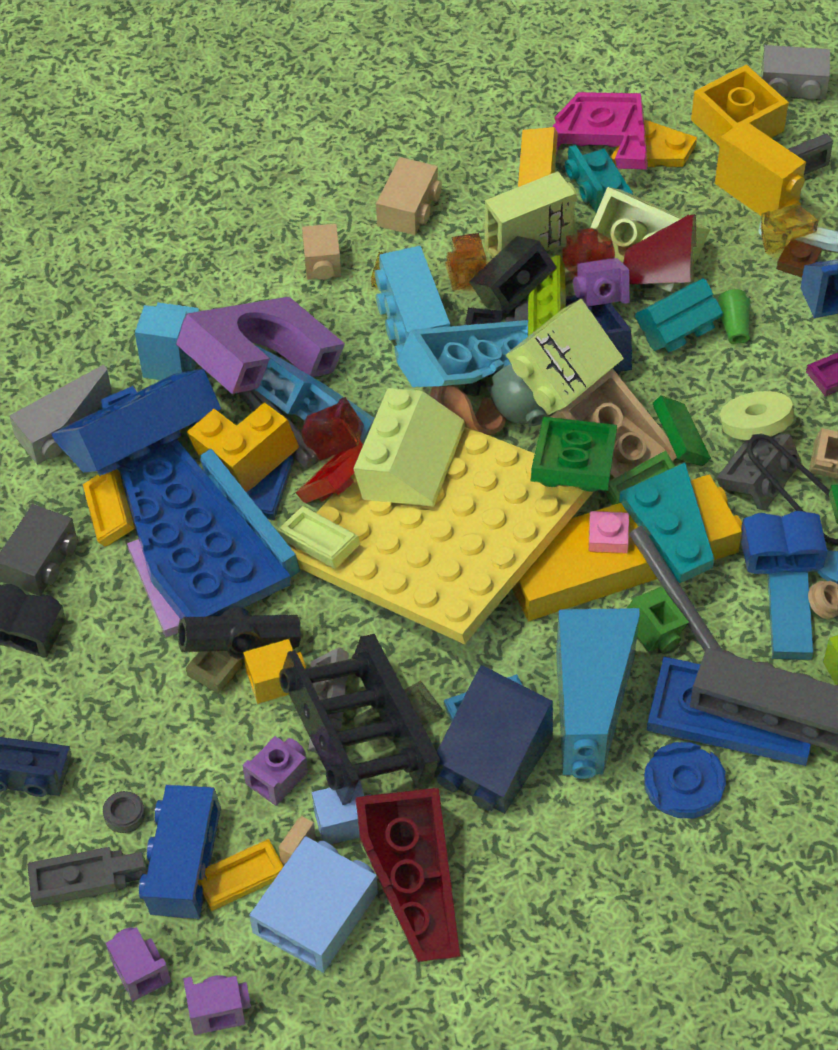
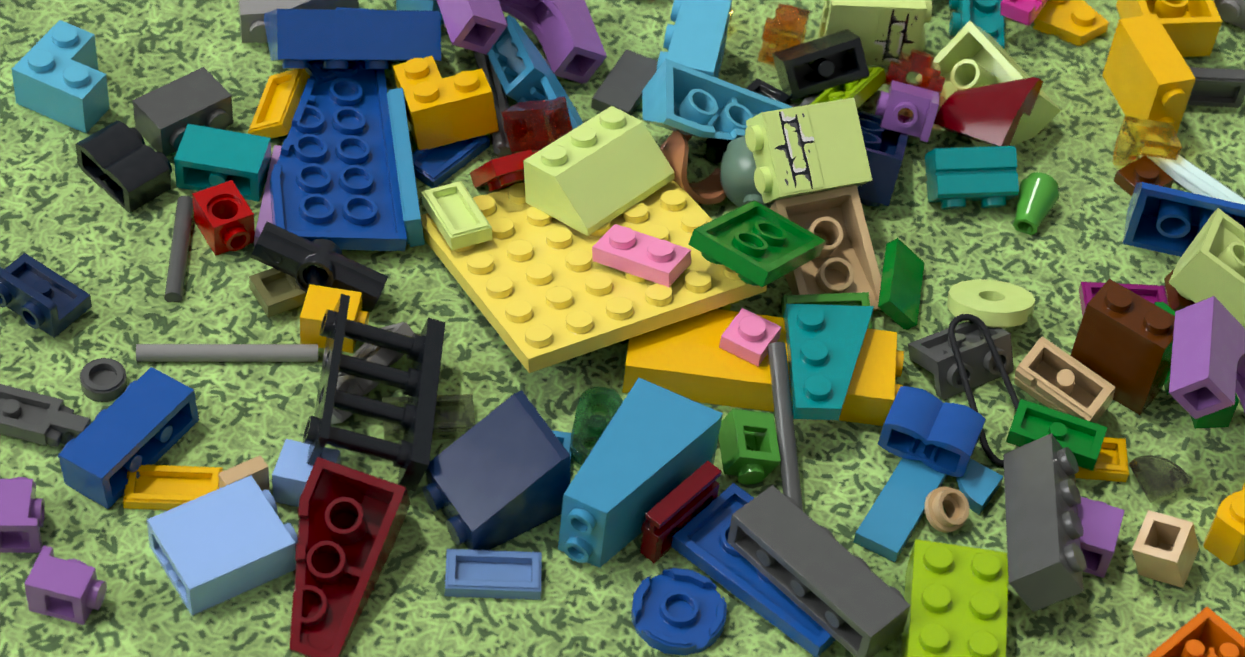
camera: 20 degrees right, 5 degrees down
(98, 578) = (217, 156): none -> teal brick
(109, 670) = (179, 249): none -> dark grey bar
(128, 614) = (223, 217): none -> red brick
(206, 740) = (226, 352): none -> light grey bar
(276, 779) = (272, 407): medium lavender brick -> none
(368, 359) = (625, 83): none -> dark grey tile
(491, 504) = (641, 255): none -> bright pink plate
(530, 820) = (493, 574): none -> medium blue tile
(533, 663) = (590, 427): none -> clear green plate
(642, 691) = (677, 510): none -> dark red plate

